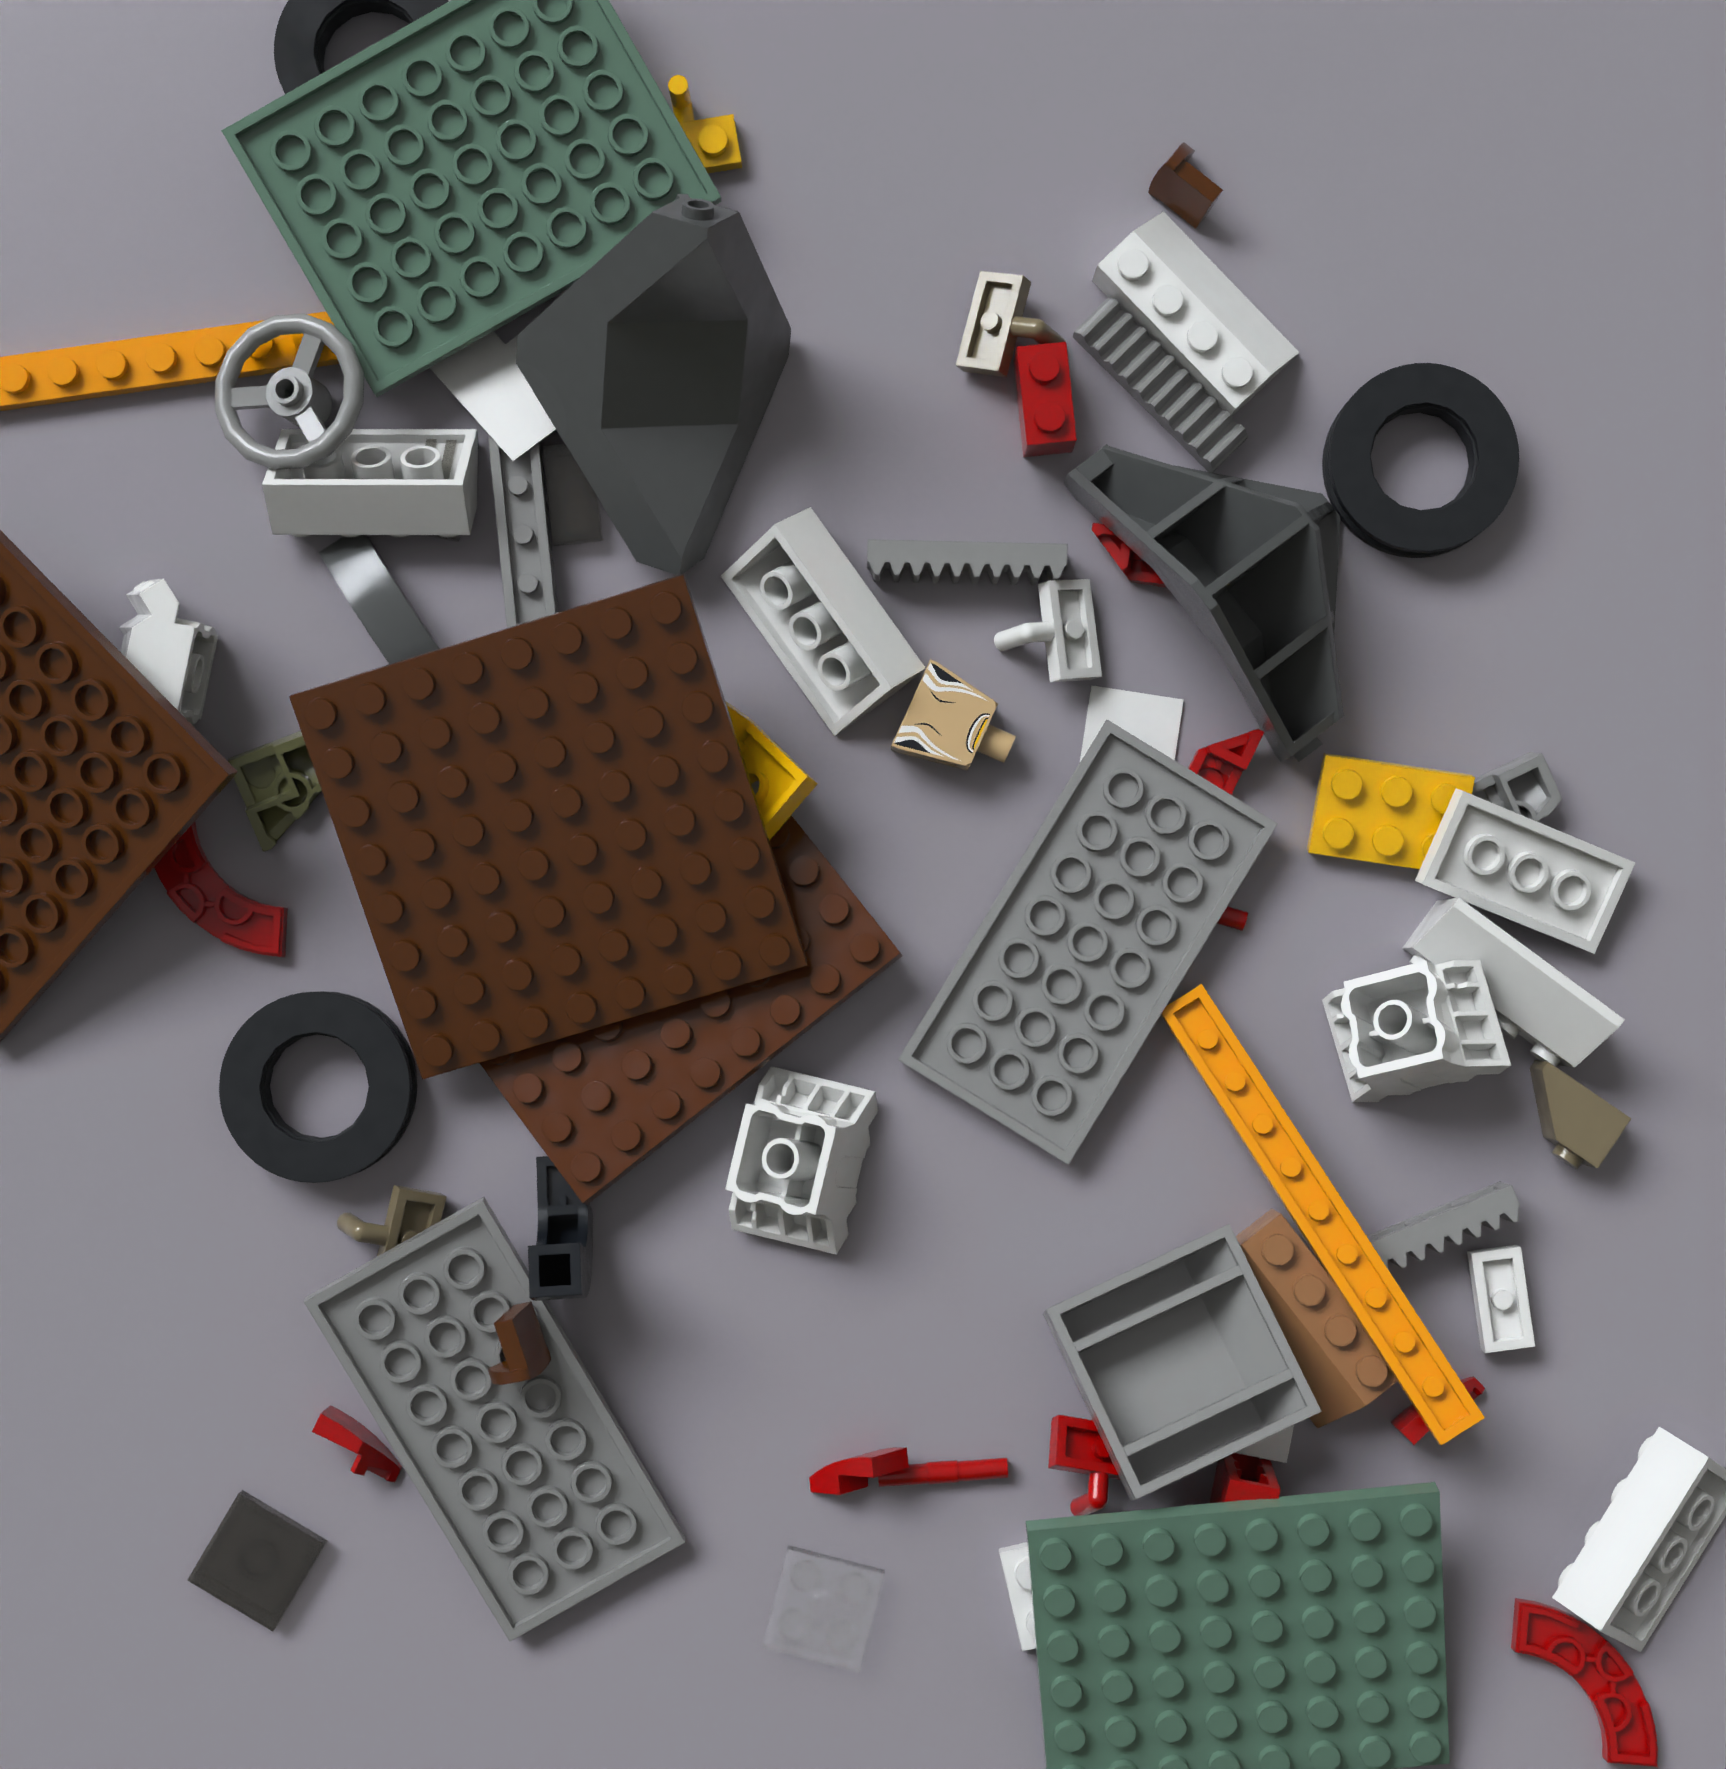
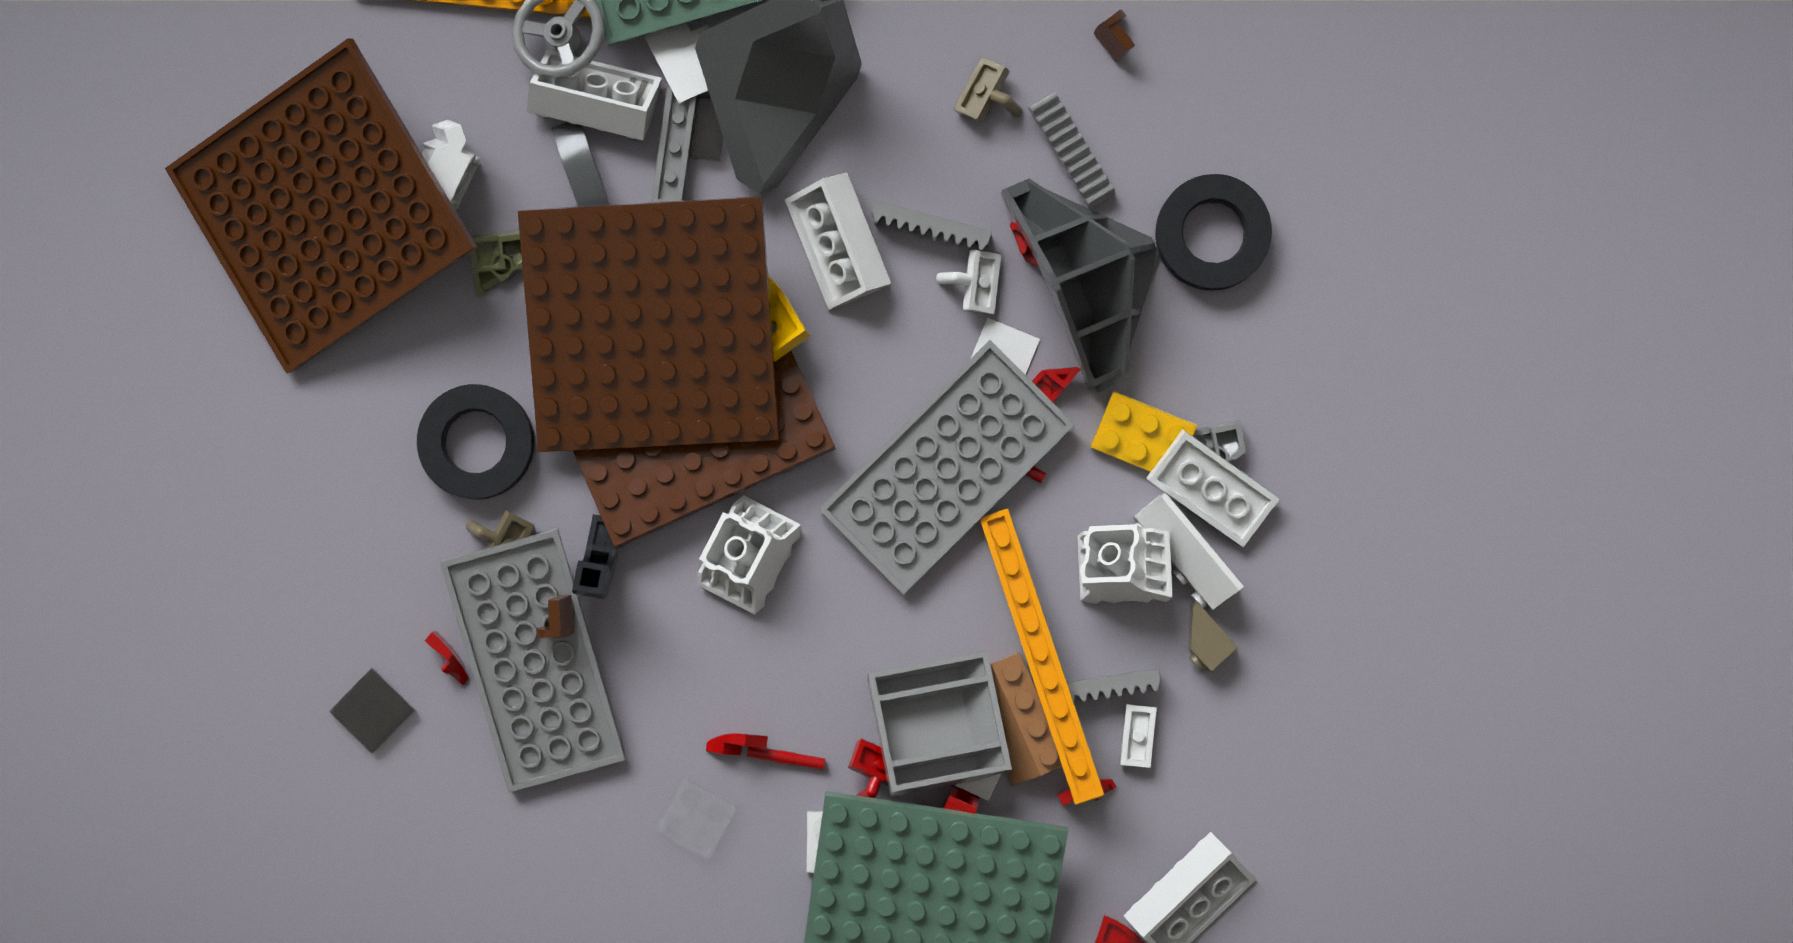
camera: 15 degrees right, 0 degrees up
(216, 905) = (441, 322): red tile -> none
(950, 722) = (898, 319): tan torso -> none
(1044, 399) = (1000, 142): red brick -> none
(1194, 312) = (1102, 112): white slope -> none

